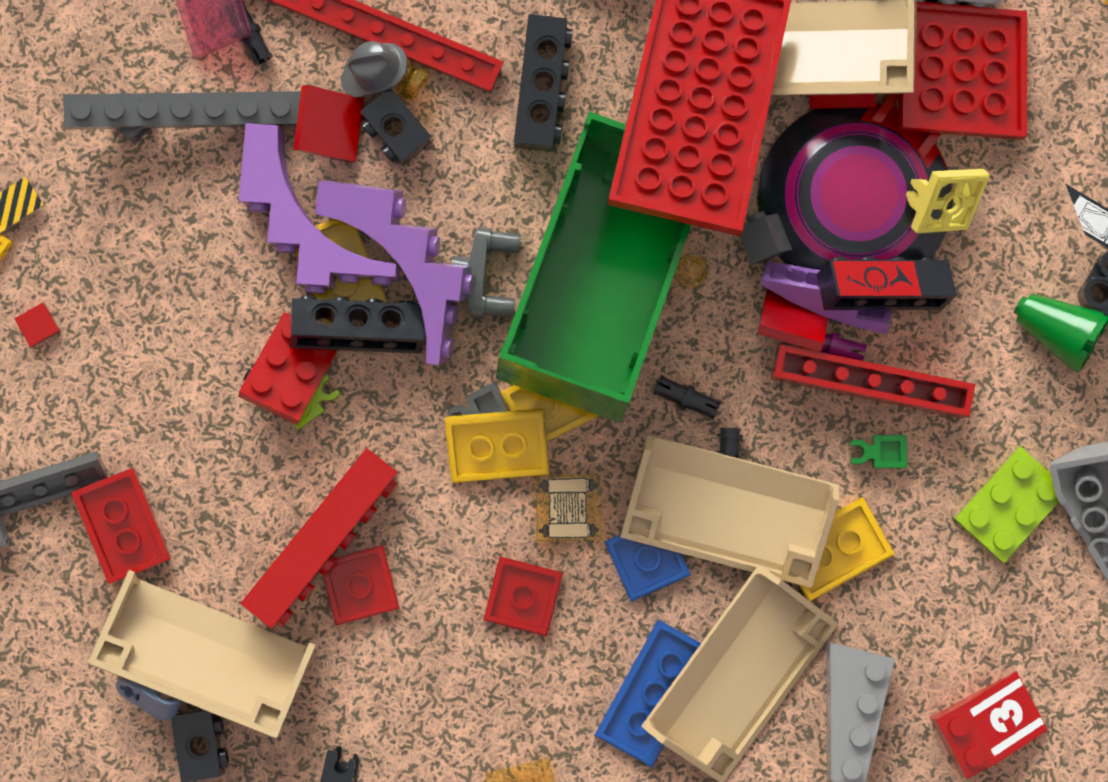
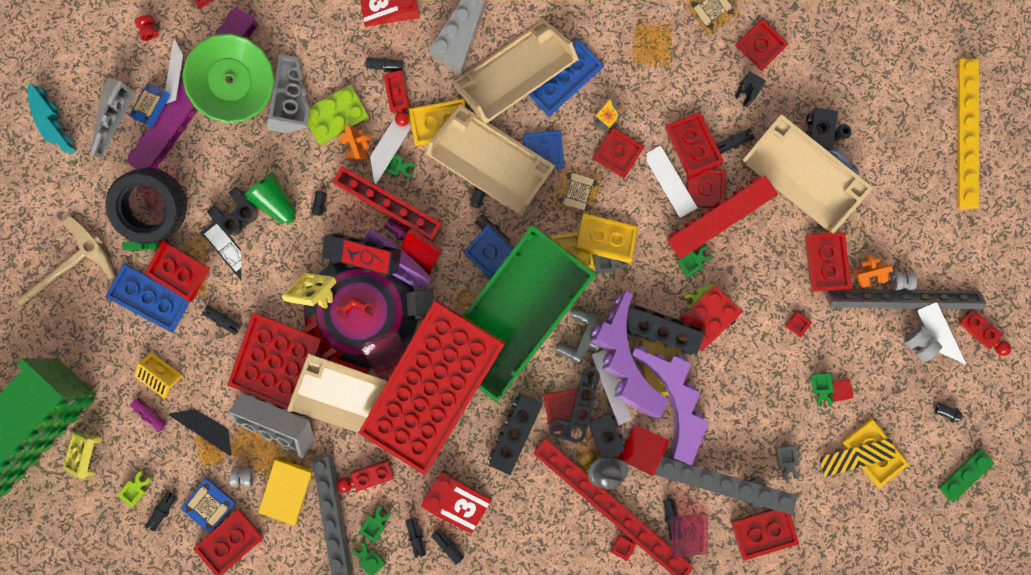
camera: 155 degrees left, 0 degrees up
(47, 537) = (870, 268): none -> orange hips
(69, 321) = (823, 385): none -> green plate
(92, 185) = (787, 458): none -> dark grey plate
(95, 55) = (764, 533): none -> red plate
(139, 409) = (798, 324): none -> red tile
(157, 753) = (842, 132): none -> black pin
(336, 678) = (735, 141): none -> black pin
(344, 451) = (692, 263): none -> green plate
(402, 648) = (694, 144): none -> red plate
(417, 213) = (609, 382): none -> white sticker
(421, 575) = (670, 181): none -> white sticker
(454, 162) = (579, 404): none -> black beam
(473, 148) = (560, 406): none -> red tile
(560, 650) = (608, 116): none -> brick
(681, 360) = (488, 251): none -> blue tile
(792, 141) = (384, 352): none -> clear pink tile
(869, 202) = (351, 303): none -> red arm
(905, 477) = (387, 148): none -> white sticker
(918, 567) = (397, 96): none -> red plate
(958, 469) = (358, 143): none -> orange hips
(960, 616) = (384, 64): none -> black axle
(985, 348) = (319, 203): none -> black pin
(1073, 110) = (221, 320): none -> black pin

